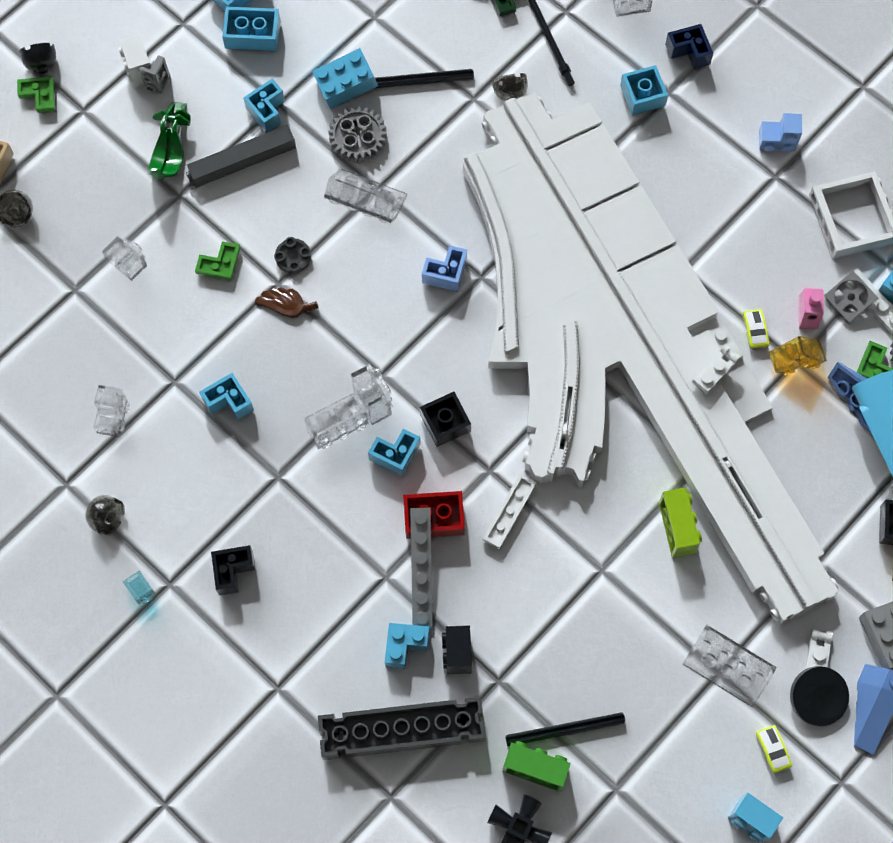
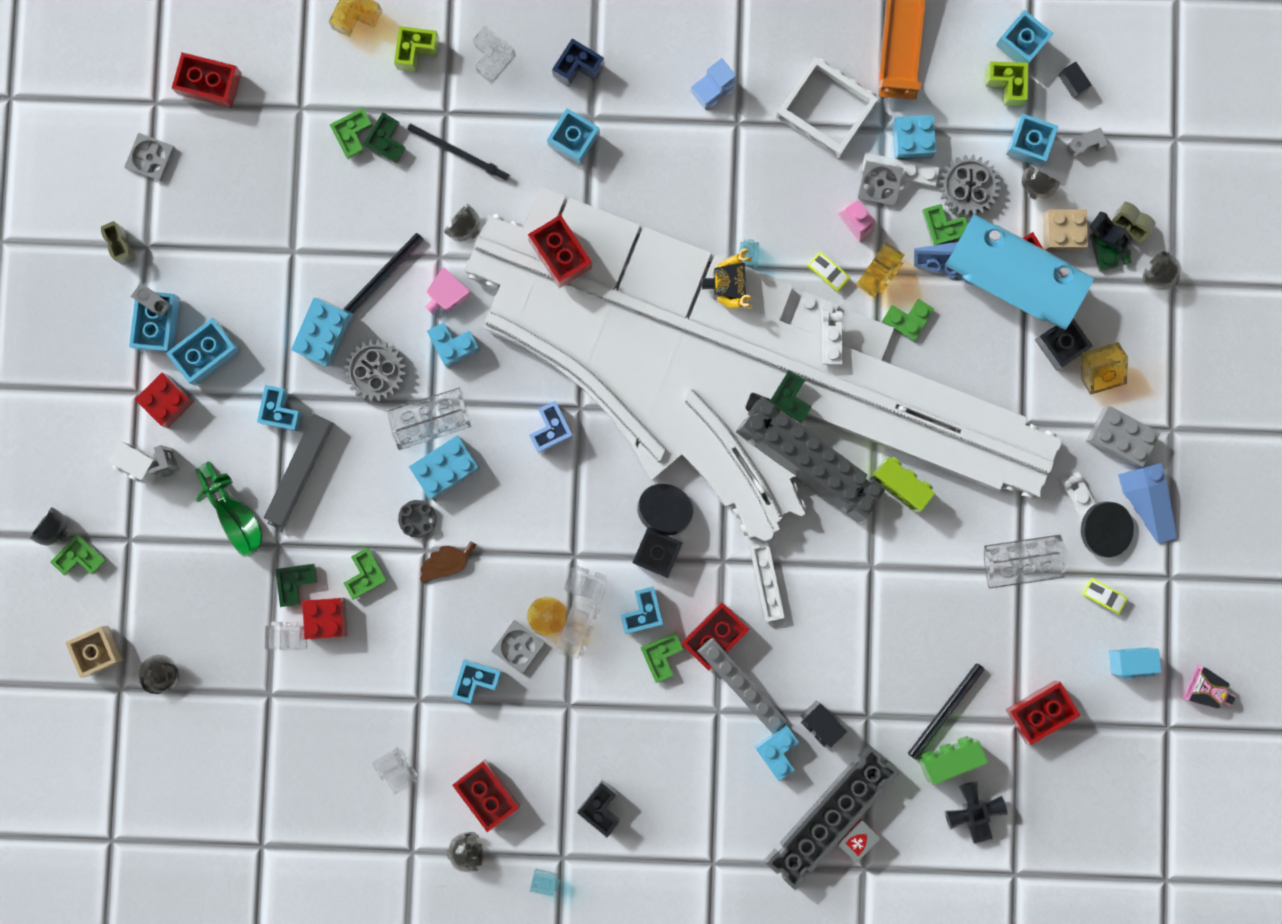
camera: 40 degrees left, 15 degrees up
(157, 485) = (486, 795): none -> red brick
(163, 267) = (324, 618): none -> red brick
(164, 223) = (289, 579): none -> dark green plate
(195, 39) = (164, 400): none -> red brick
(297, 414) = (497, 650): none -> light grey piece
(320, 385) = (554, 624): none -> clear yellow brick
(345, 235) = (444, 467): none -> medium azure brick
(379, 493) = (656, 653): none -> bright green plate
(405, 765) = (858, 840): none -> piece
(427, 162) = (452, 349): none -> medium azure brick
(456, 122) = (446, 292): none -> bright pink torso
(479, 392) = (665, 509): none -> black piece
(563, 148) = (560, 251): none -> red brick
(622, 445) = (811, 460): none -> dark grey brick
(643, 380) = (786, 399): none -> dark green plate
(643, 794) = (1043, 712): none -> red brick
(672, 266) = (730, 282): none -> torso
(705, 267) = (753, 246): none -> clear light blue brick
(786, 415) = (908, 324): none -> bright green plate

